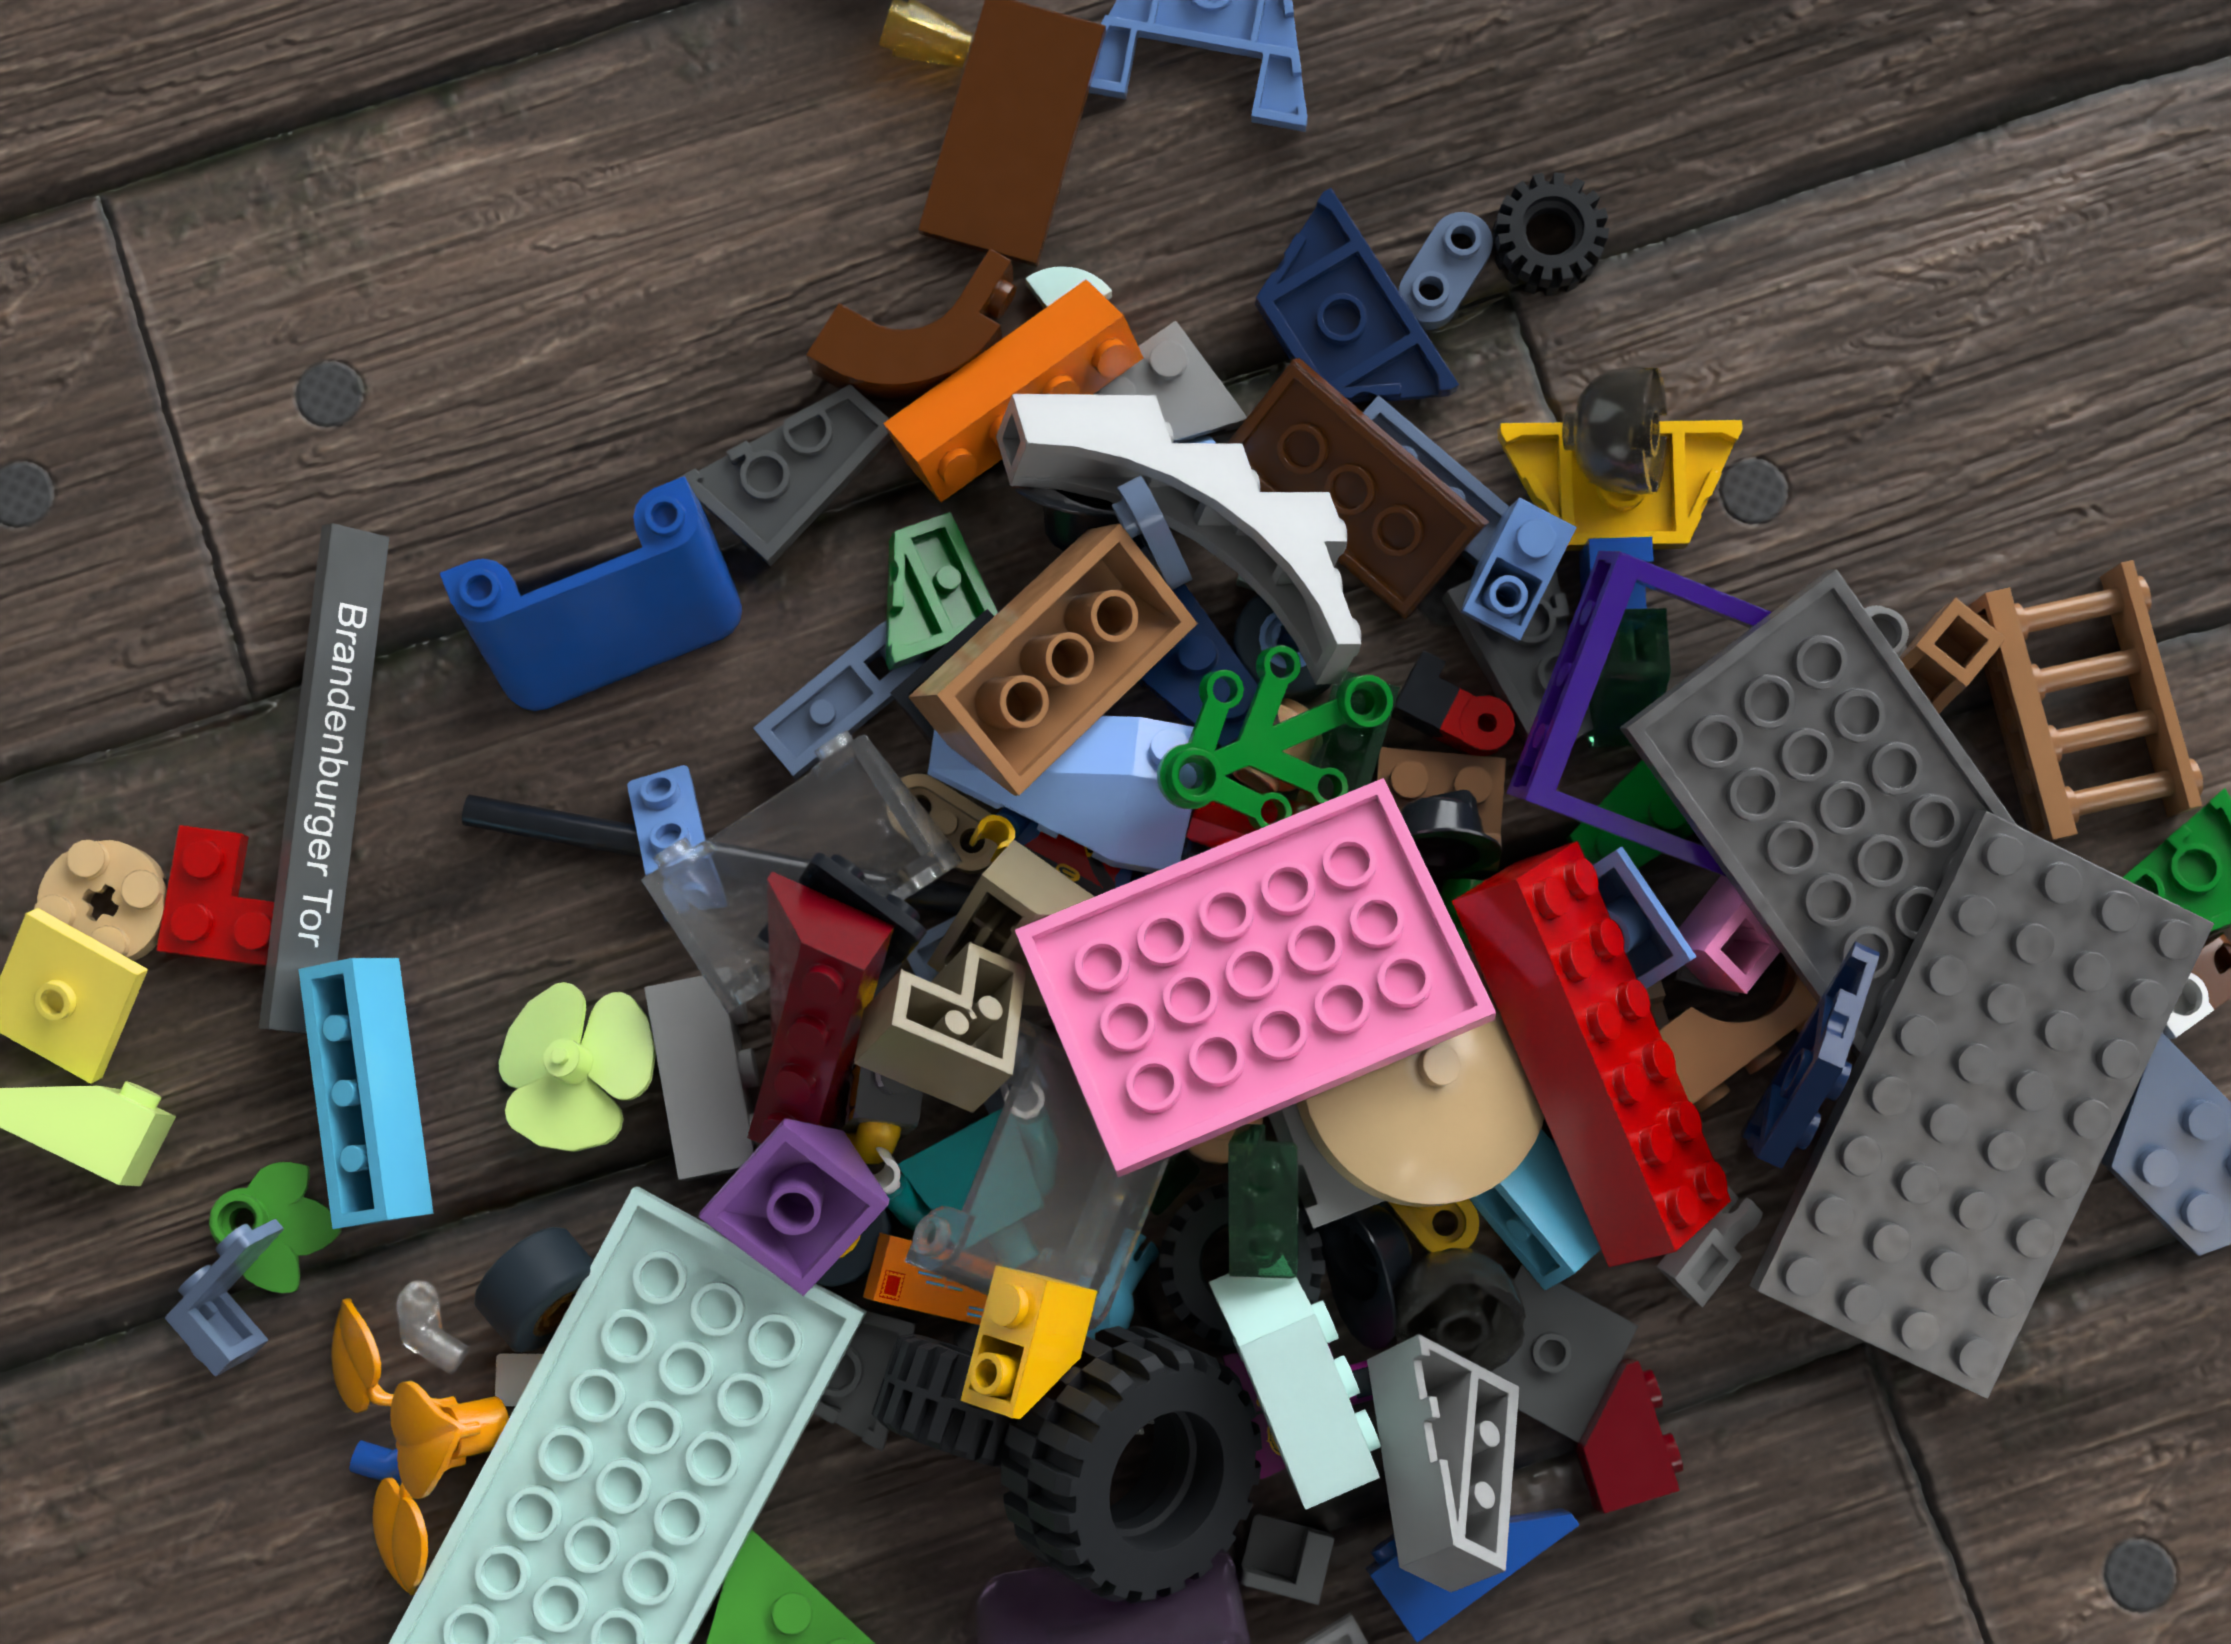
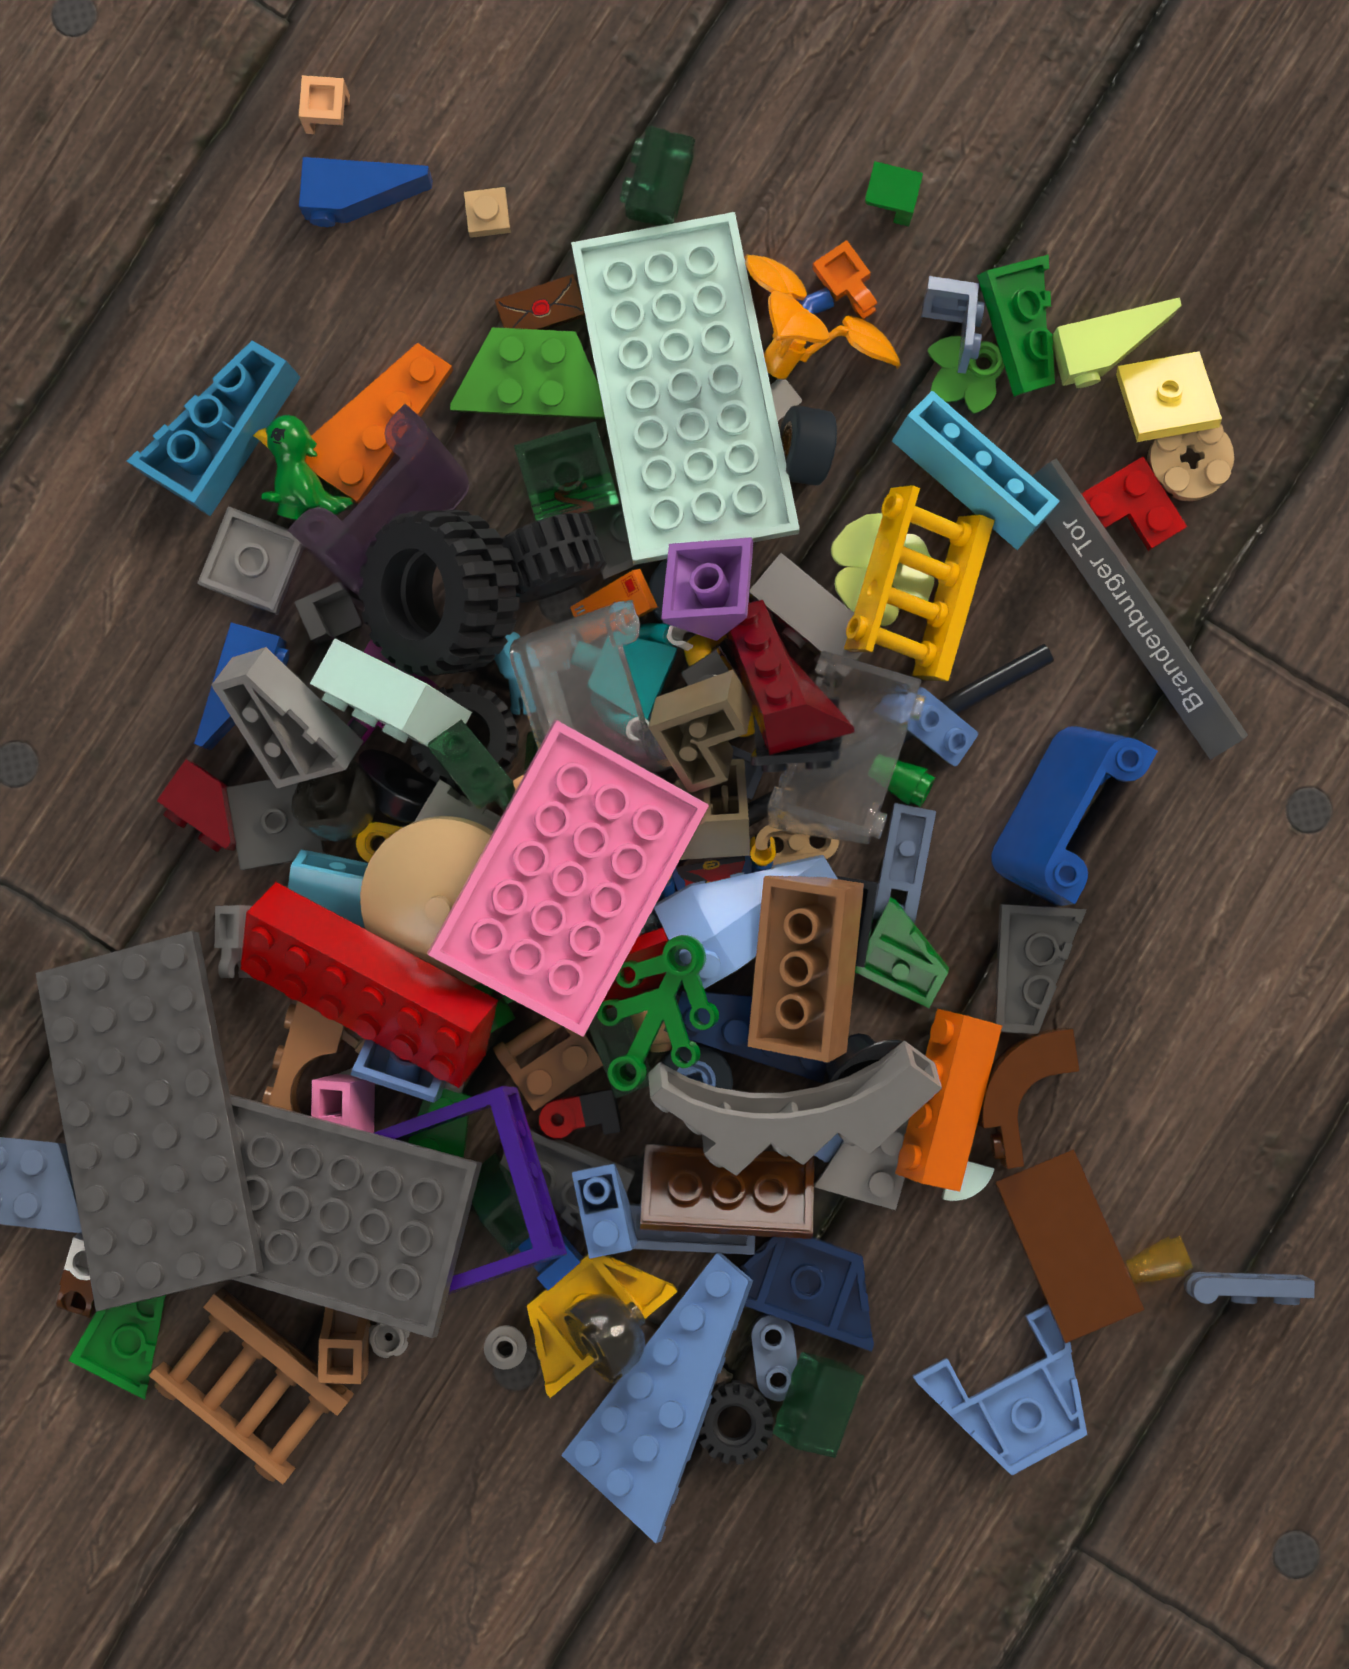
camera: 140 degrees right, 5 degrees up
(154, 1240) = (1017, 313): none -> green wing
(165, 1522) = (894, 190): none -> green panel
(315, 1469) = (844, 275): none -> orange plate
(422, 1327) = (849, 382): clear arm -> none
(515, 967) = (954, 592): none -> yellow fence
(753, 780) = (911, 783): none -> green cone
(856, 1489) = (567, 472): none -> clear green slope
(1026, 1340) = (536, 605): yellow slope -> none
(1142, 517) = (820, 1077): sand blue plate -> none
(1439, 175) = (818, 1404): none -> clear green brick
(1450, 834) = (532, 1040): black piece -> none
(1658, 297) = (653, 1414): none -> medium blue wing
(1740, 534) = (509, 1334): none -> light grey plate
(1814, 1065) = (248, 1065): dark blue wing -> none

